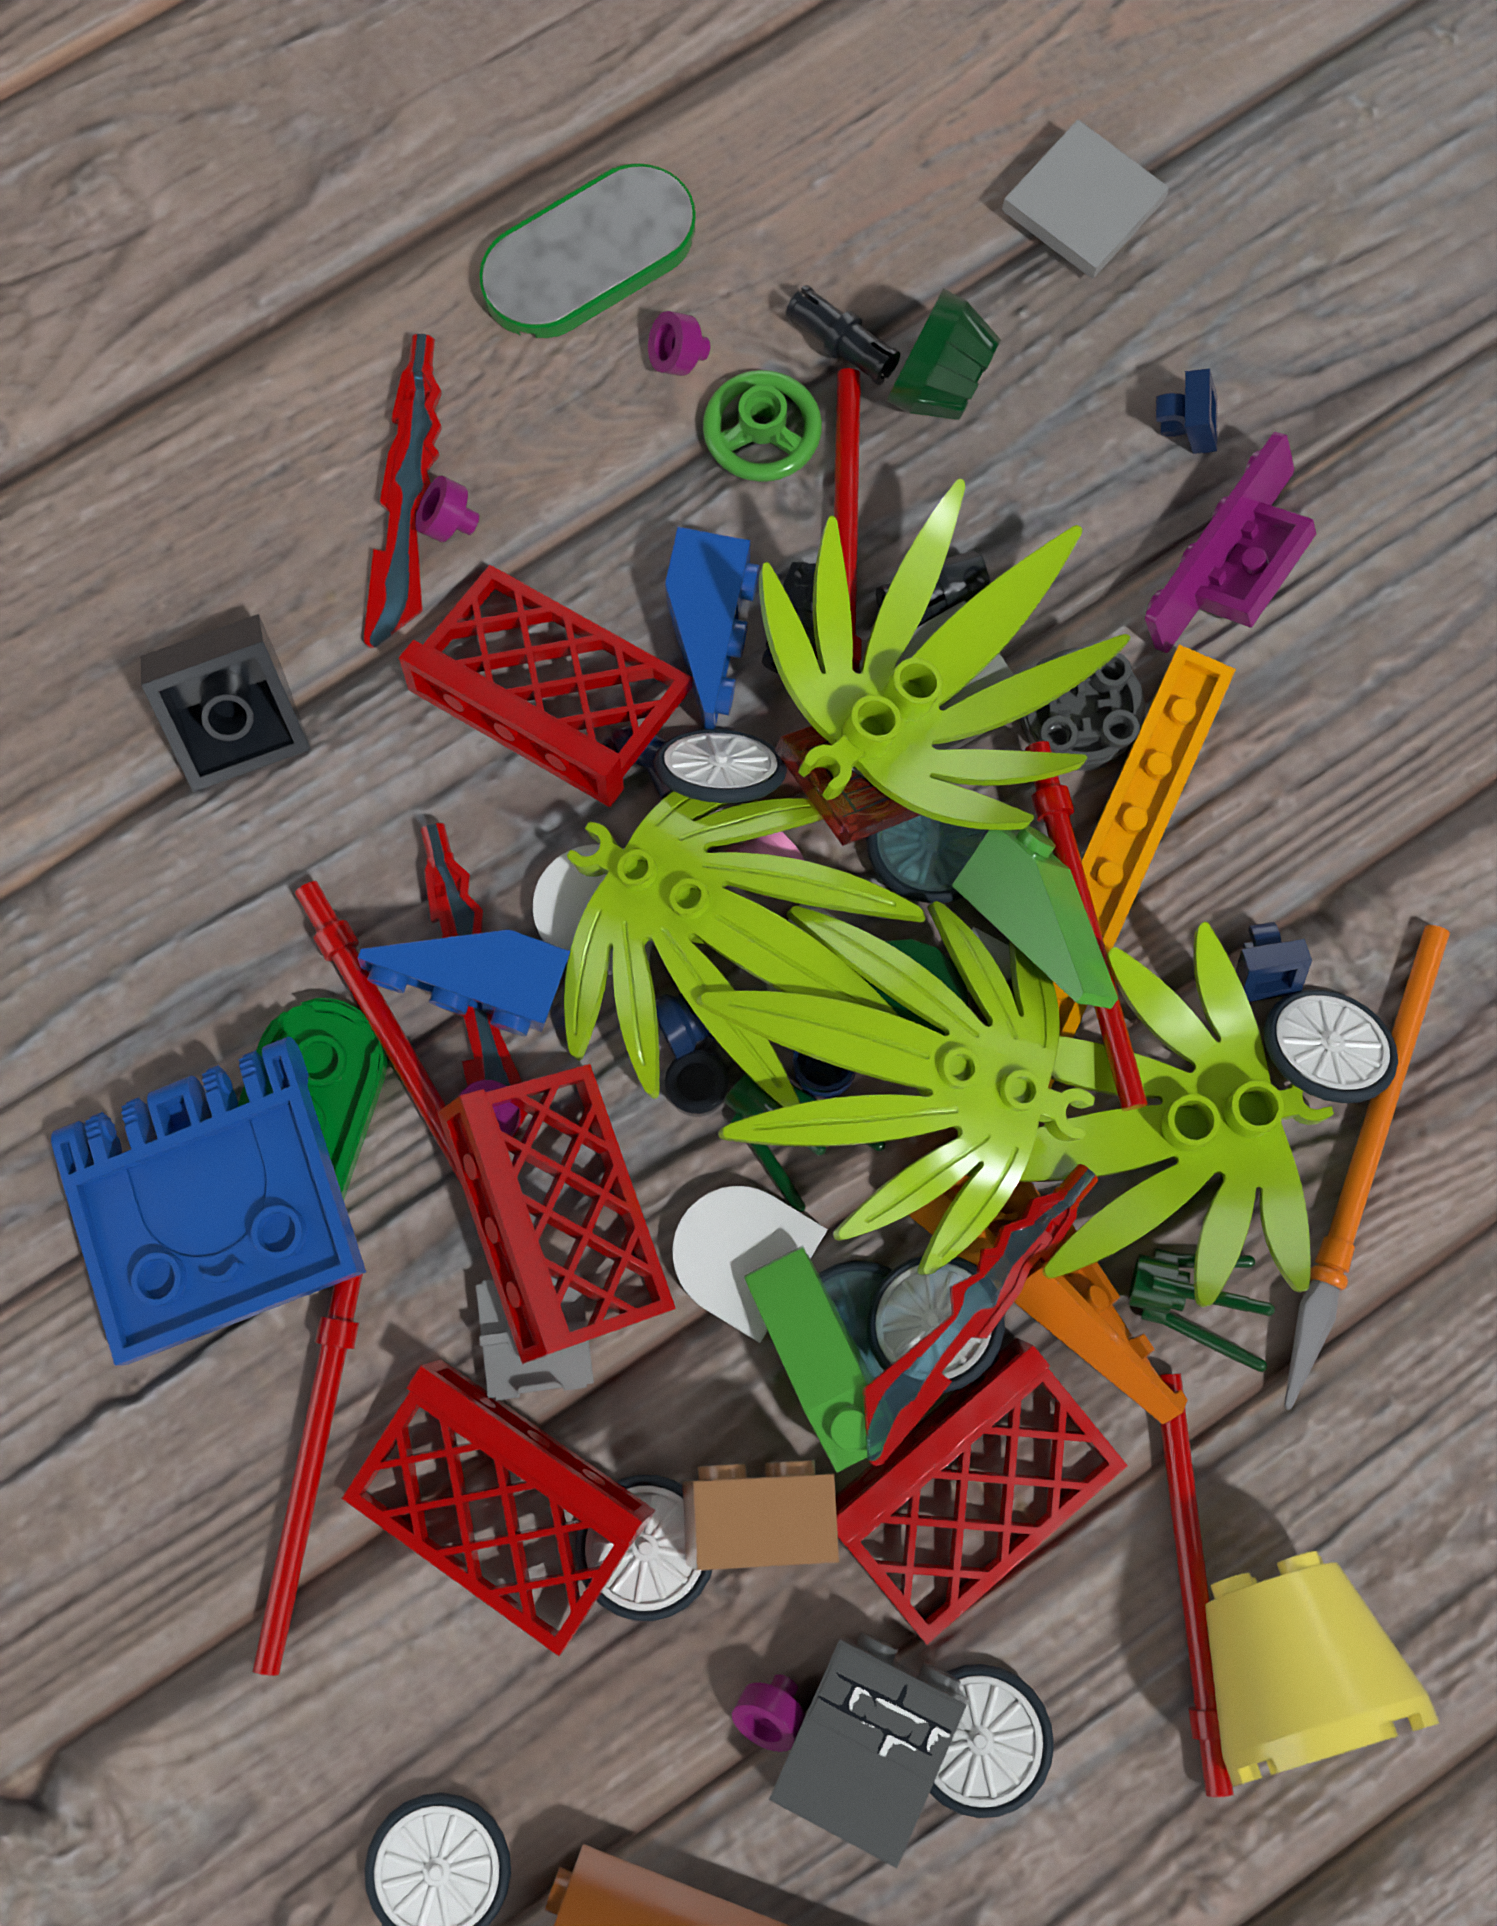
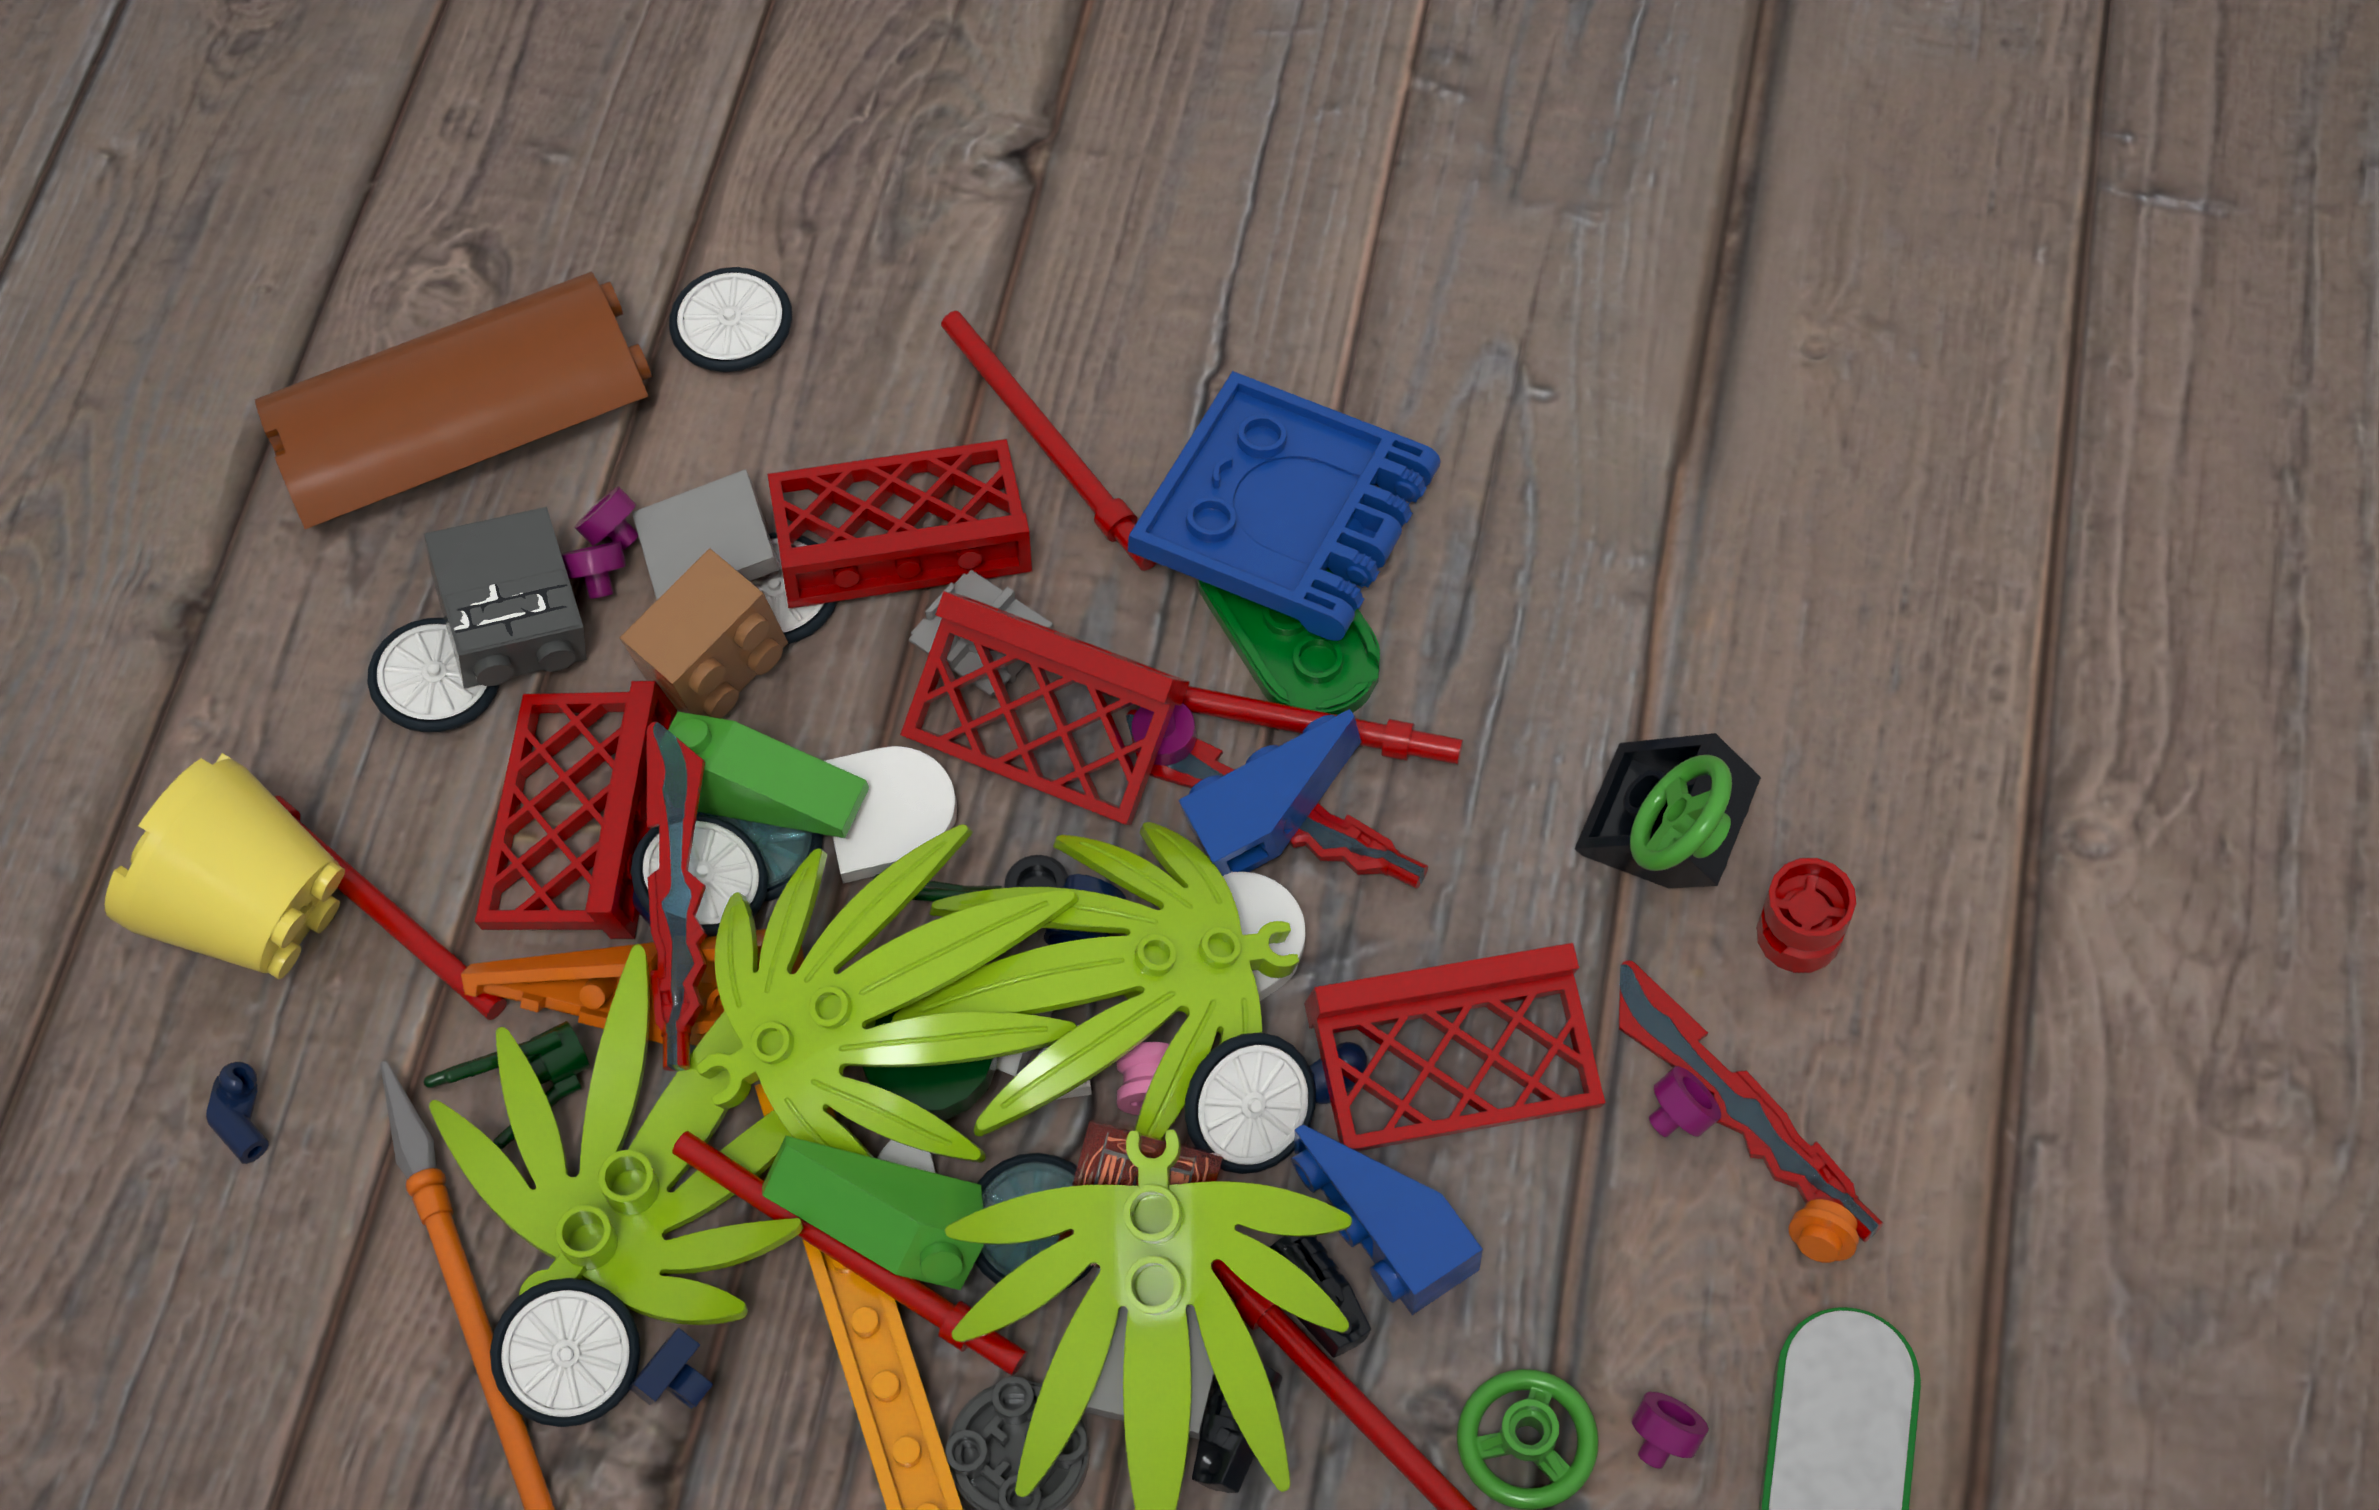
camera: 140 degrees right, 15 degrees down
(228, 539) = (1806, 915): none -> red wheel
(231, 609) = (1689, 823): none -> bright green piece
(453, 359) = (1825, 1231): none -> orange plate
(666, 1638) = (712, 516): none -> light grey tile
(721, 1749) = (609, 520): none -> magenta tile
(1431, 1480) = (231, 1111): none -> dark blue arm

